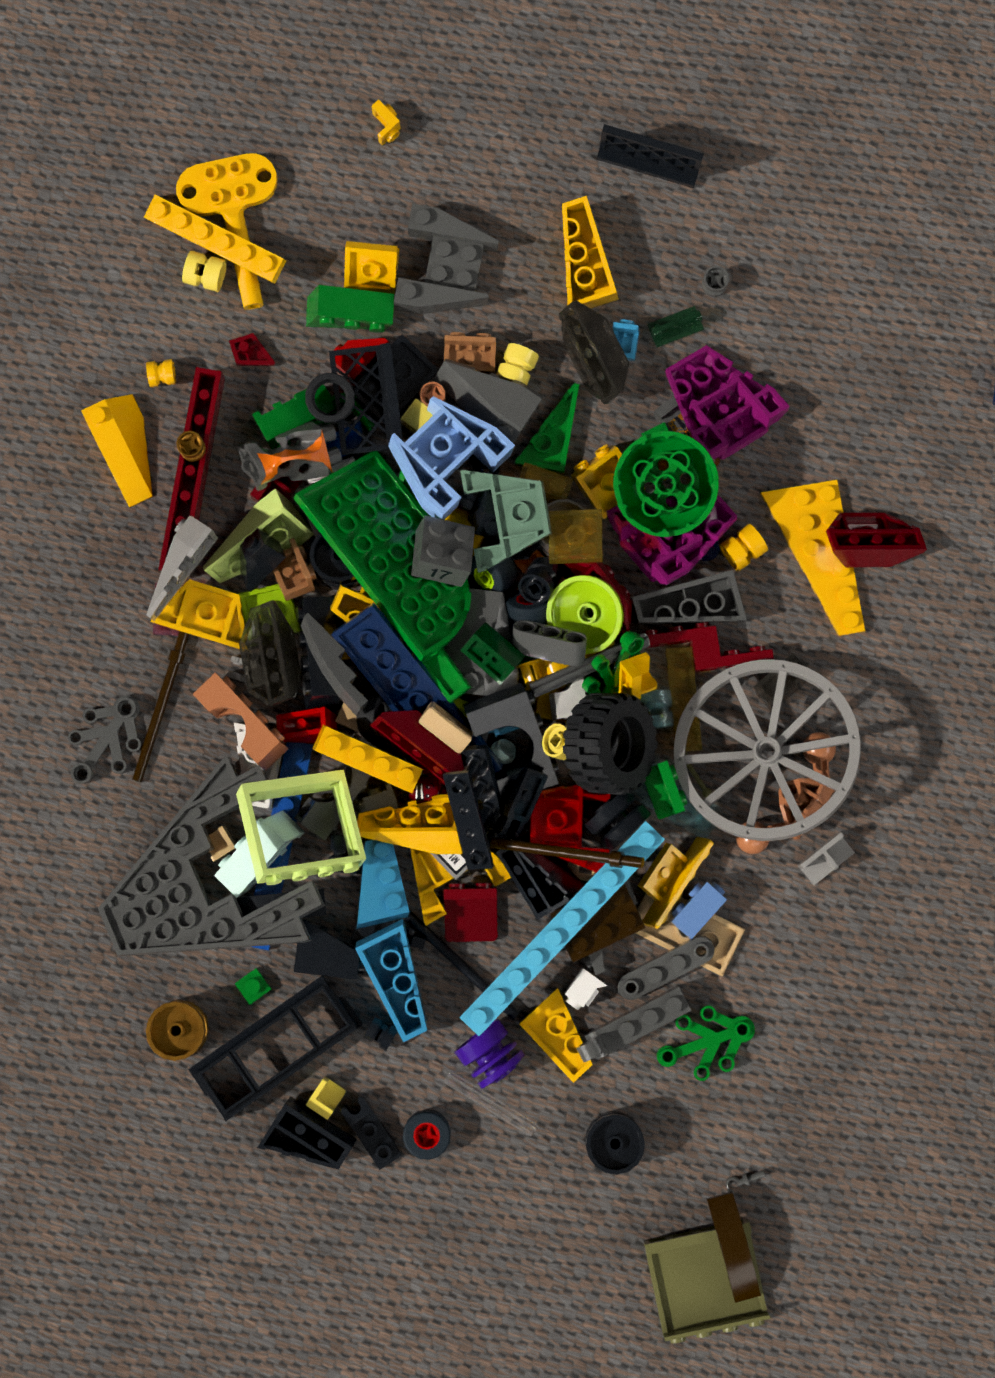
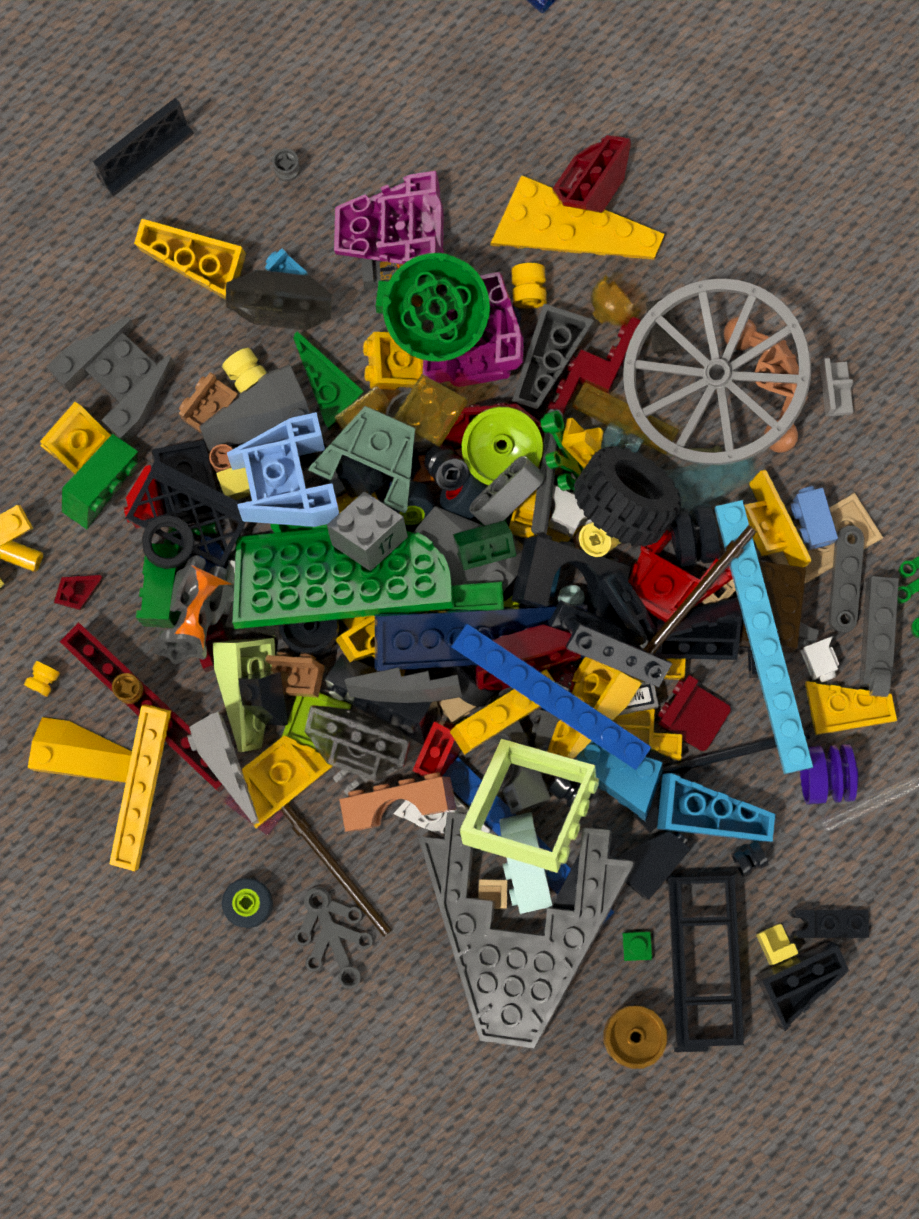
camera: 55 degrees left, 5 degrees down
(95, 659) = (255, 906): none -> black wheel
(122, 508) = (140, 787): none -> yellow plate
(399, 787) = (550, 696): none -> blue plate
(426, 1143) = (873, 876): black wheel -> none
(446, 727) = (523, 625): tan slope -> none
(664, 792) = (696, 480): green bracket -> none
(676, 326) = (302, 221): clear green hinge -> none
(774, 626) = (612, 303): none -> clear yellow cylinder

